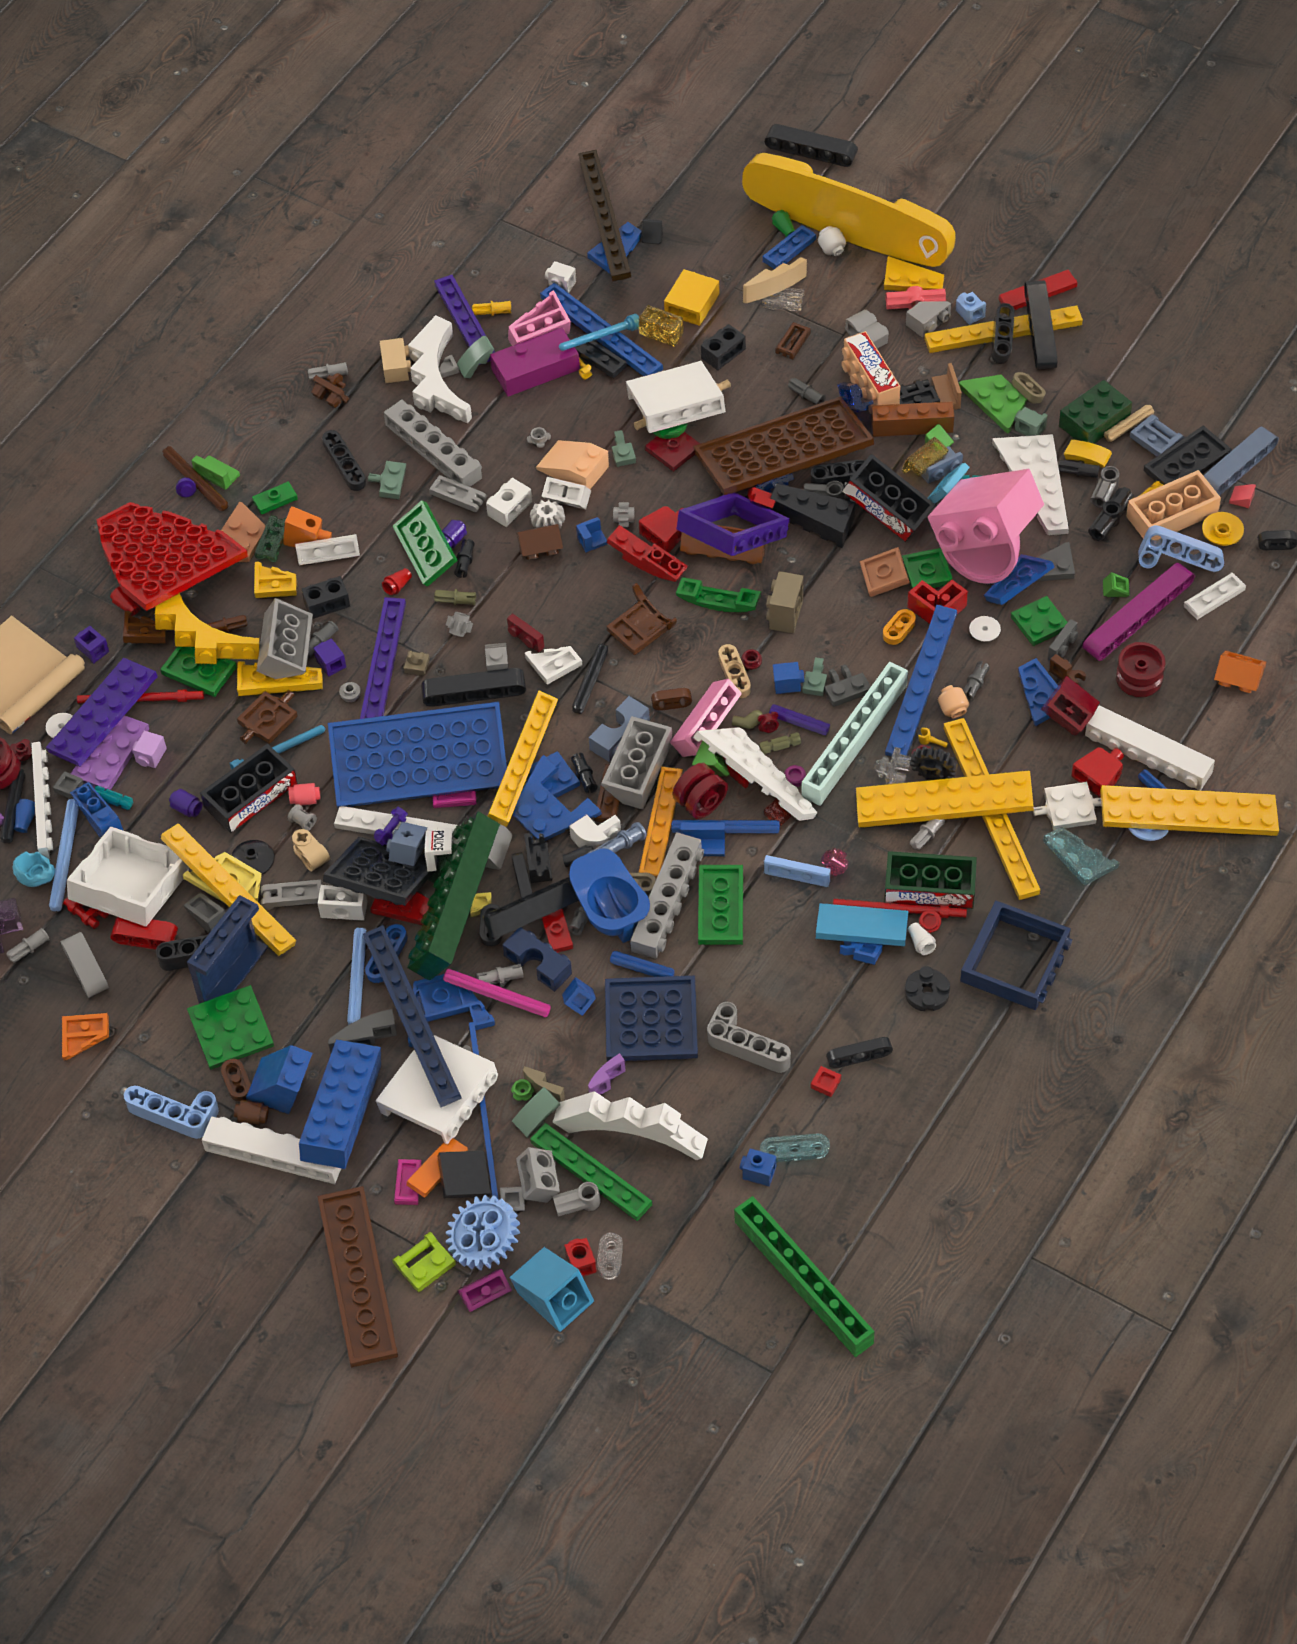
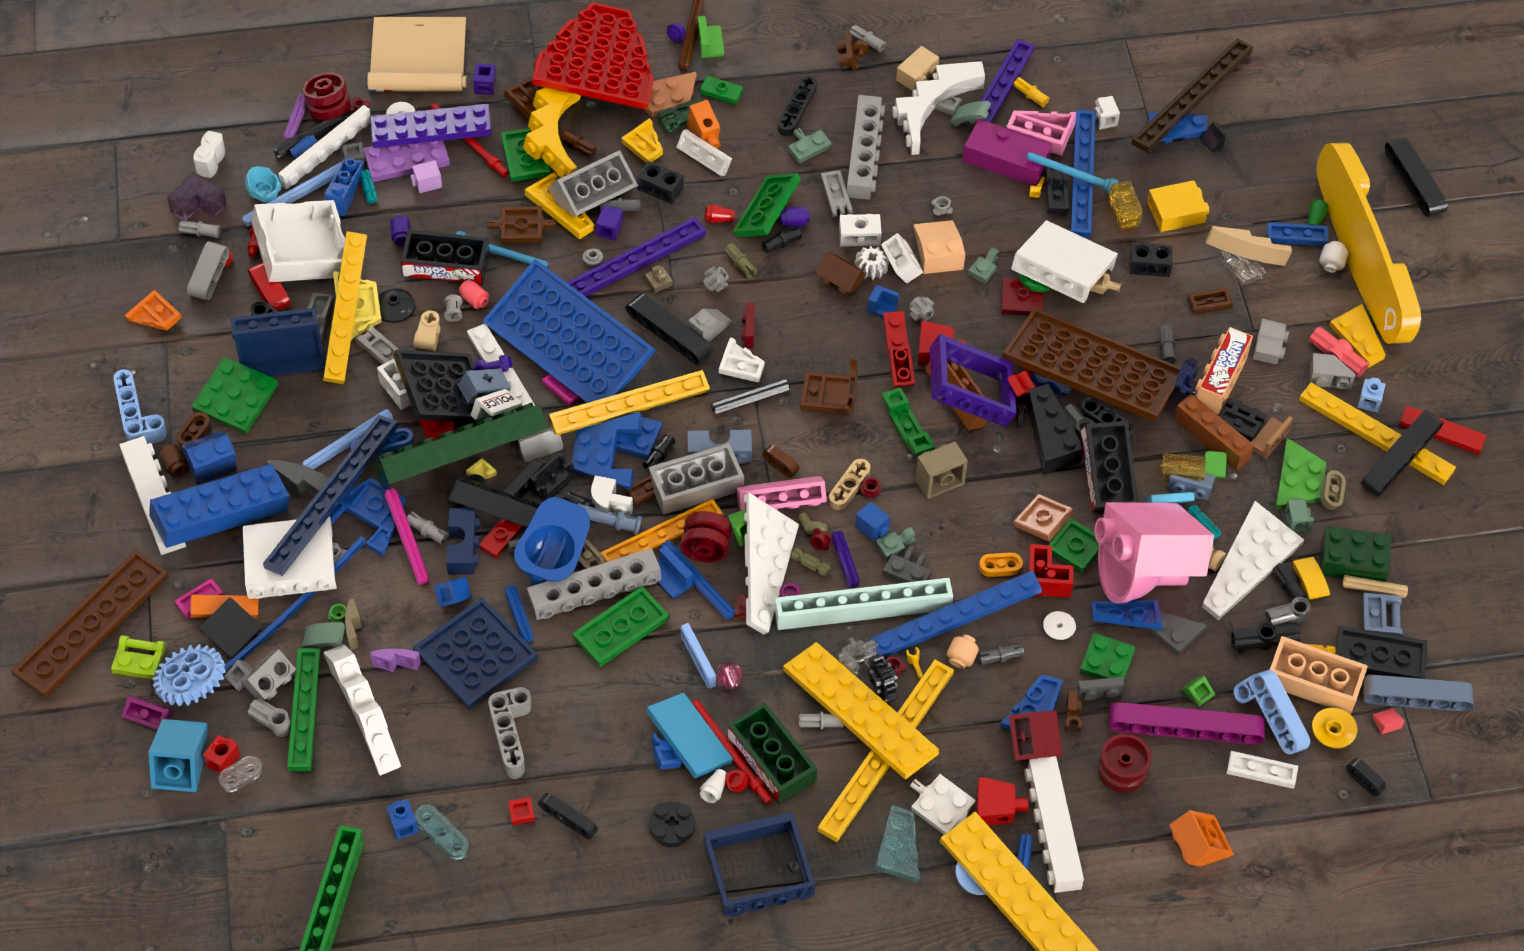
camera: 45 degrees right, 0 degrees up
(1006, 325) = (1368, 424): black beam -> none

